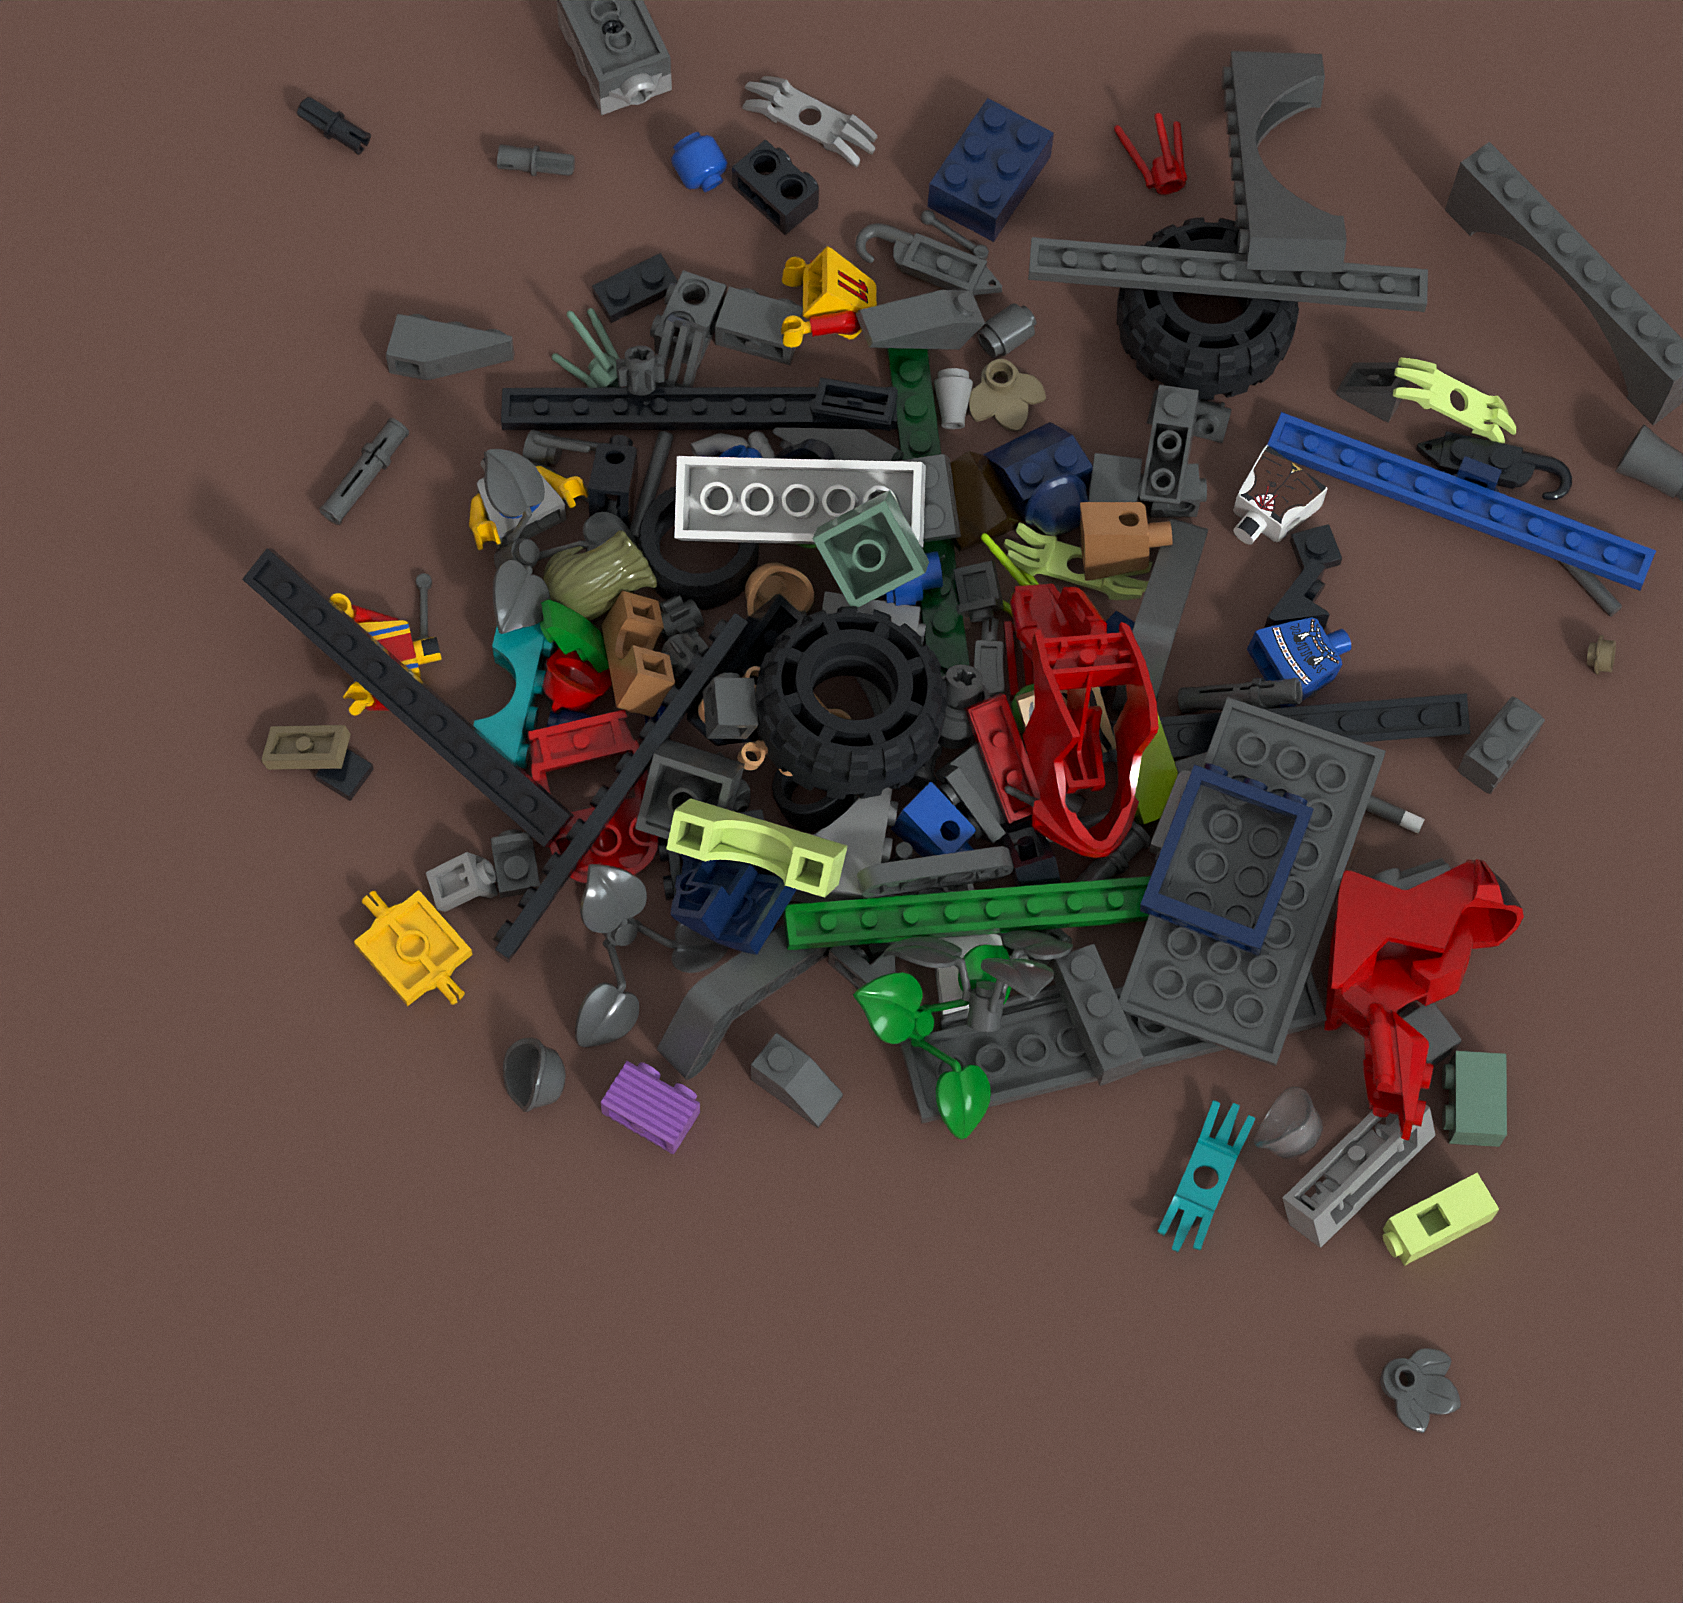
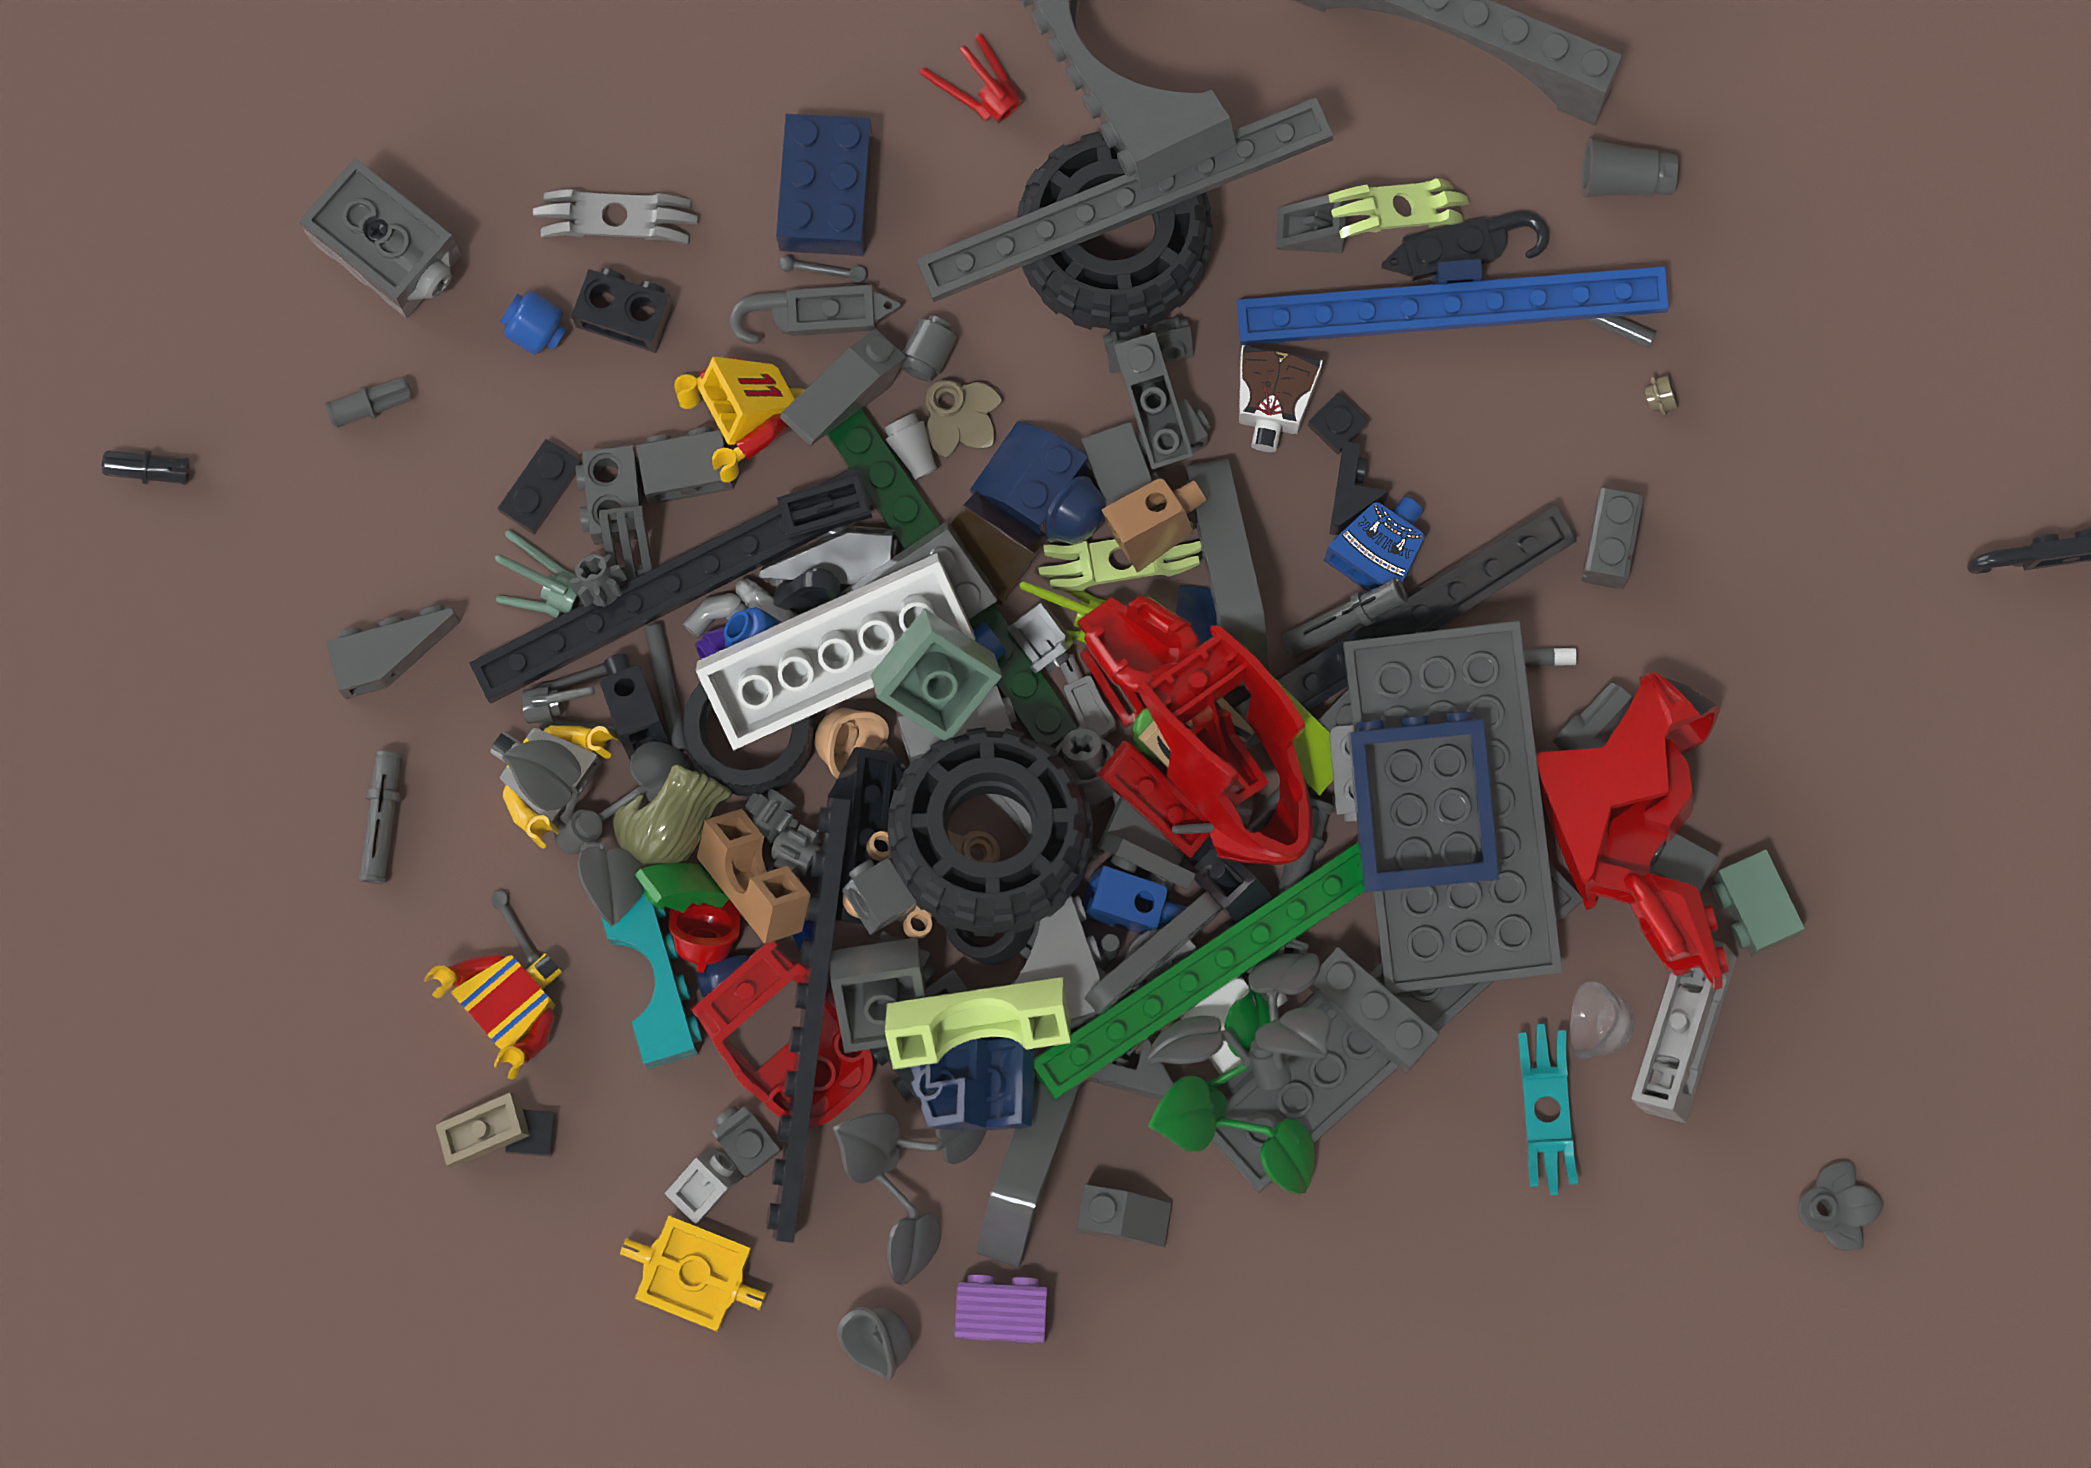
camera: 20 degrees left, 10 degrees up
(408, 697) = (558, 1037): black plate -> none
(1439, 1219) = (1780, 1039): yellowish green brick -> none

